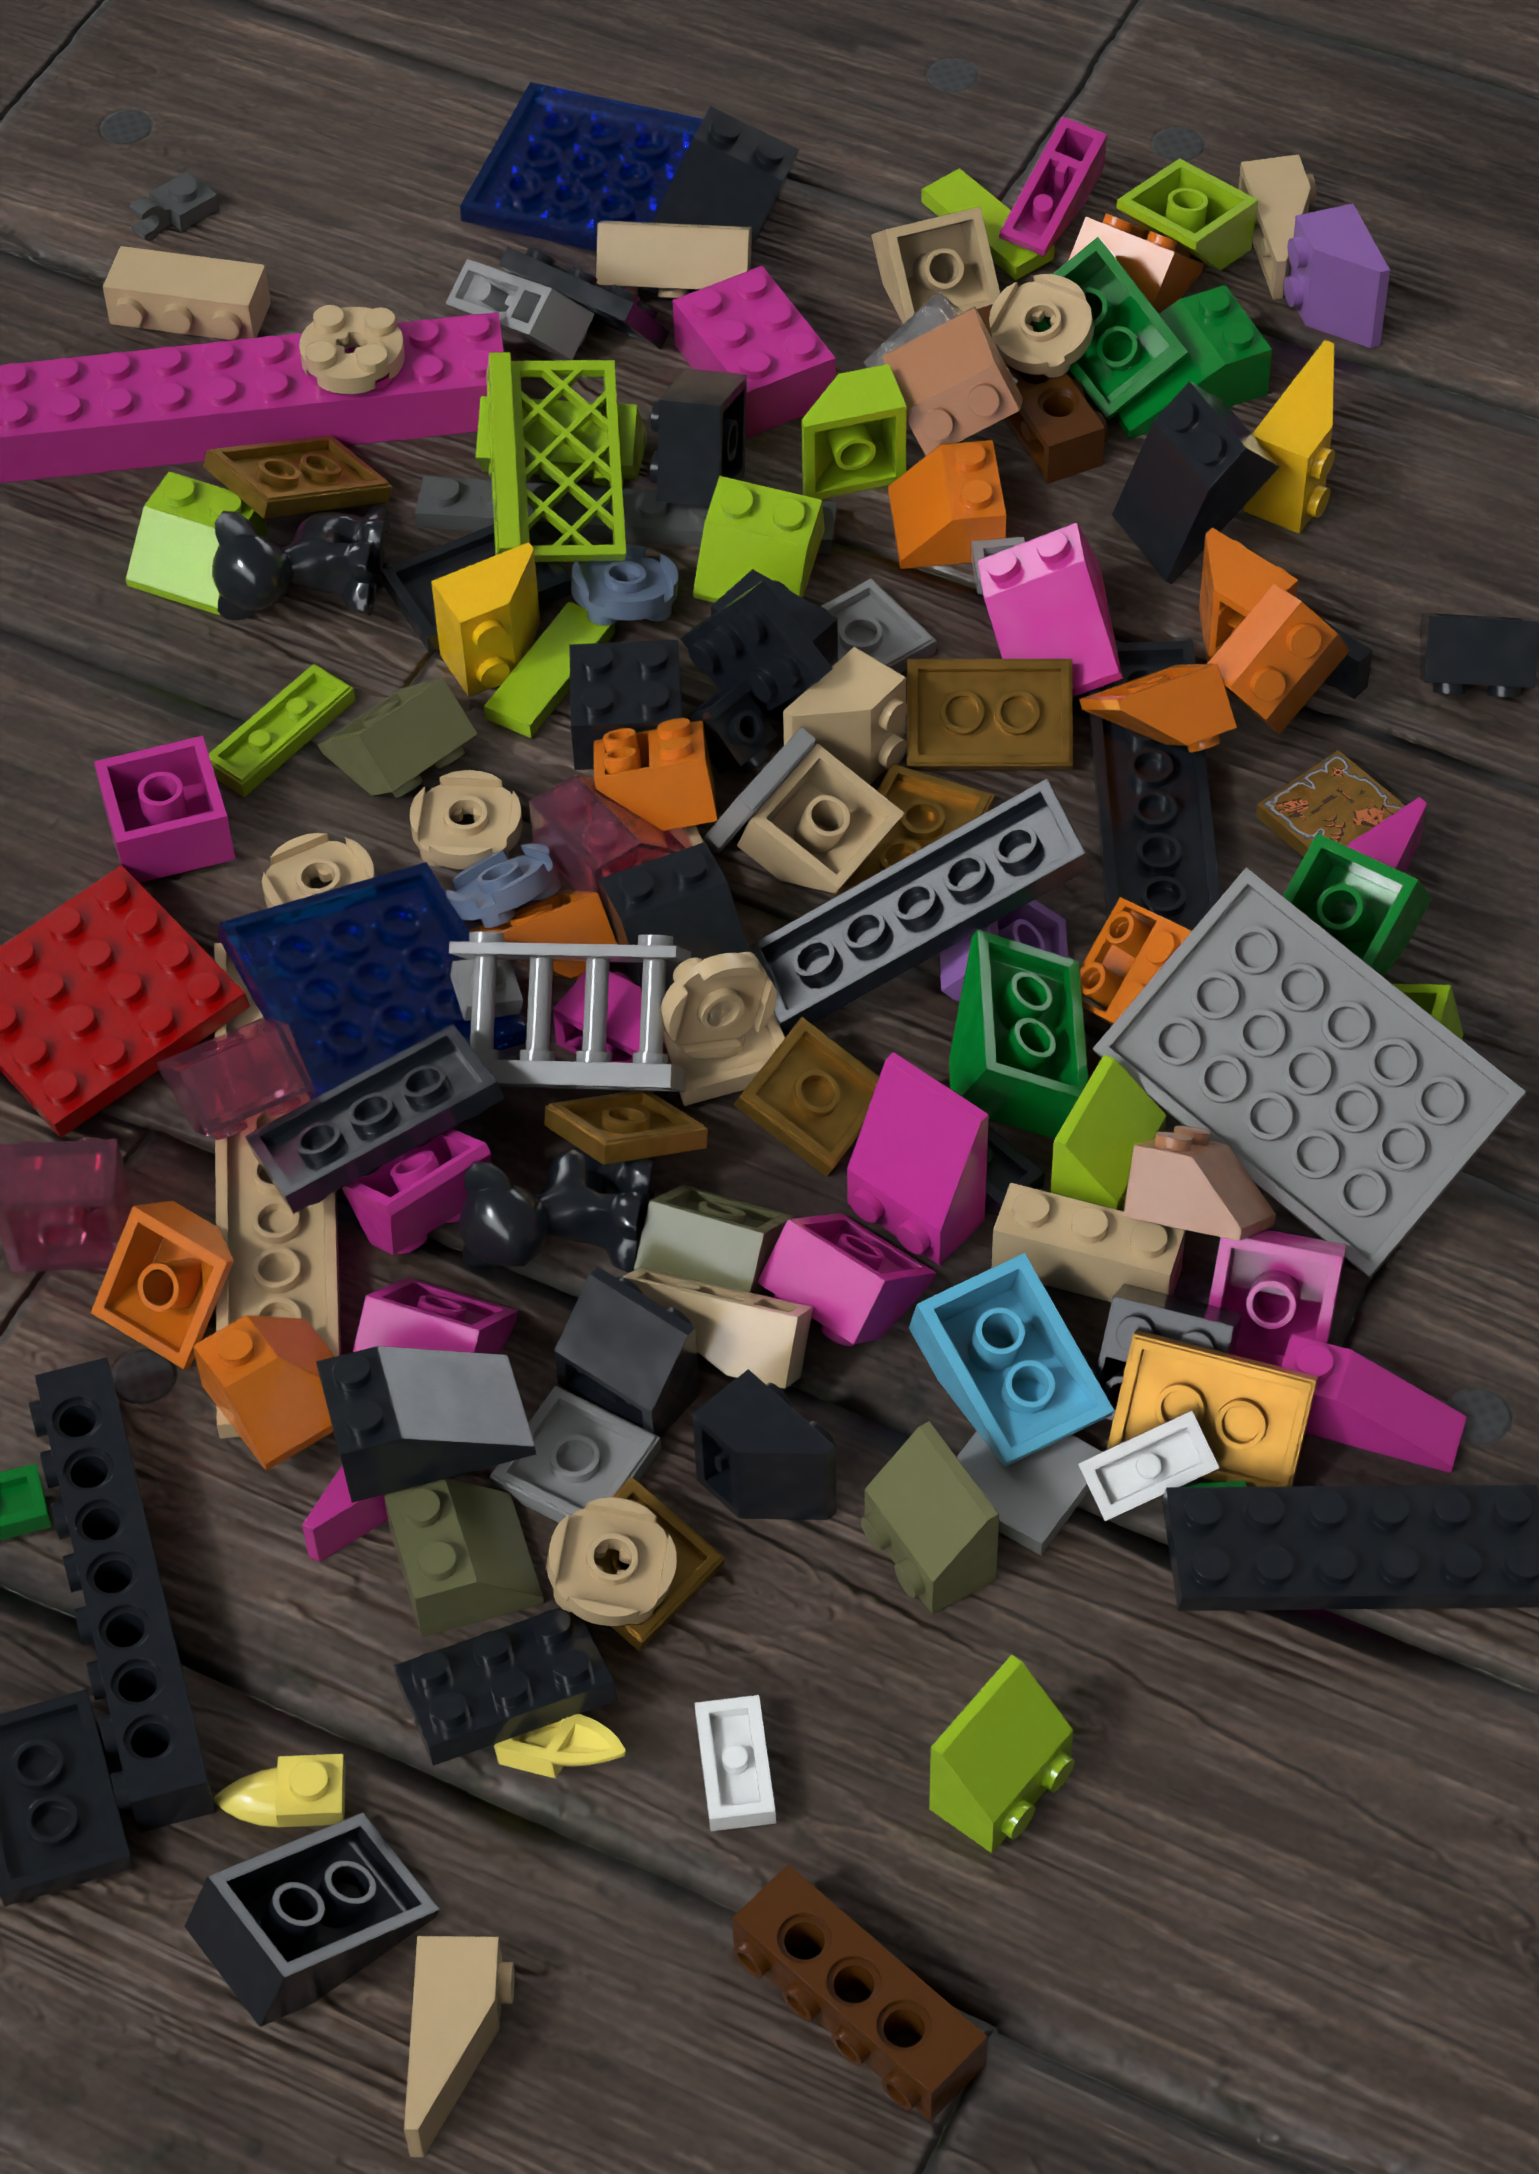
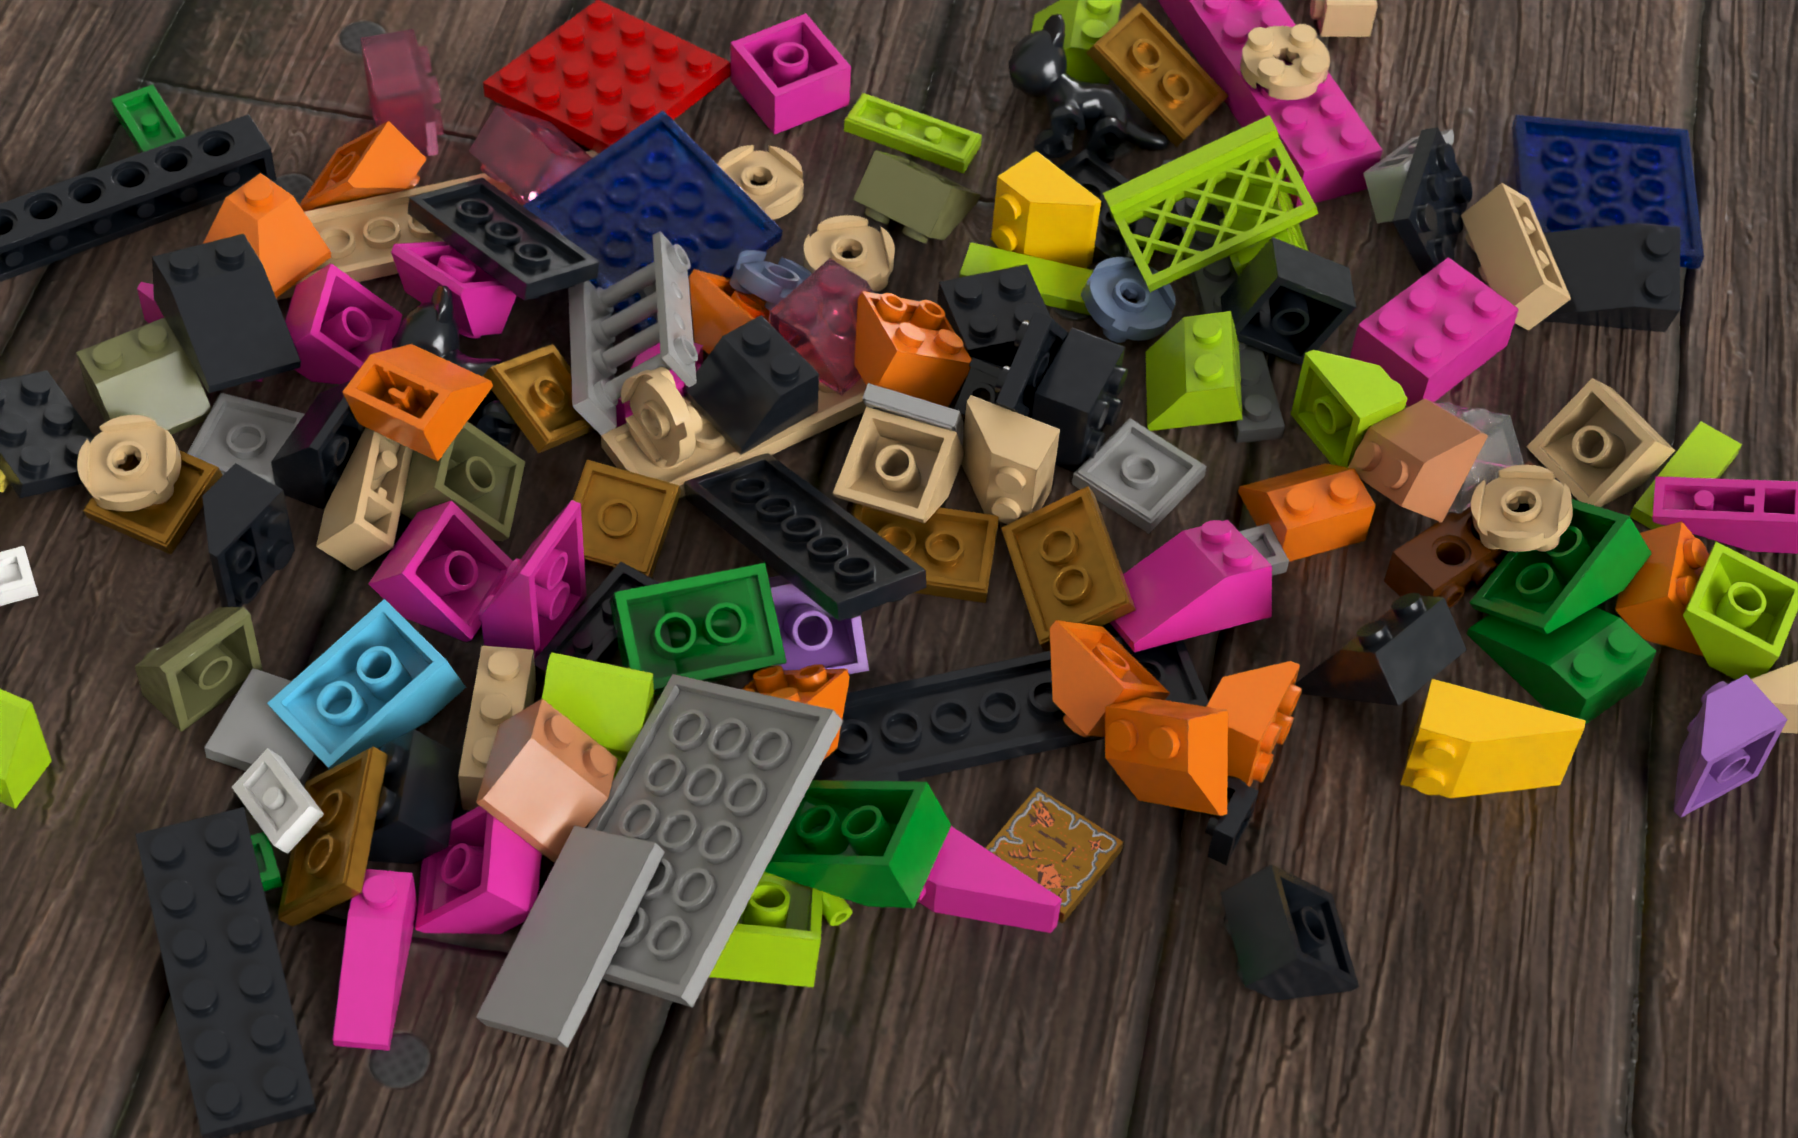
camera: 70 degrees right, 0 degrees up
(651, 1210) = (415, 398): none -> orange slope
(1395, 1203) = (570, 935): none -> light grey tile

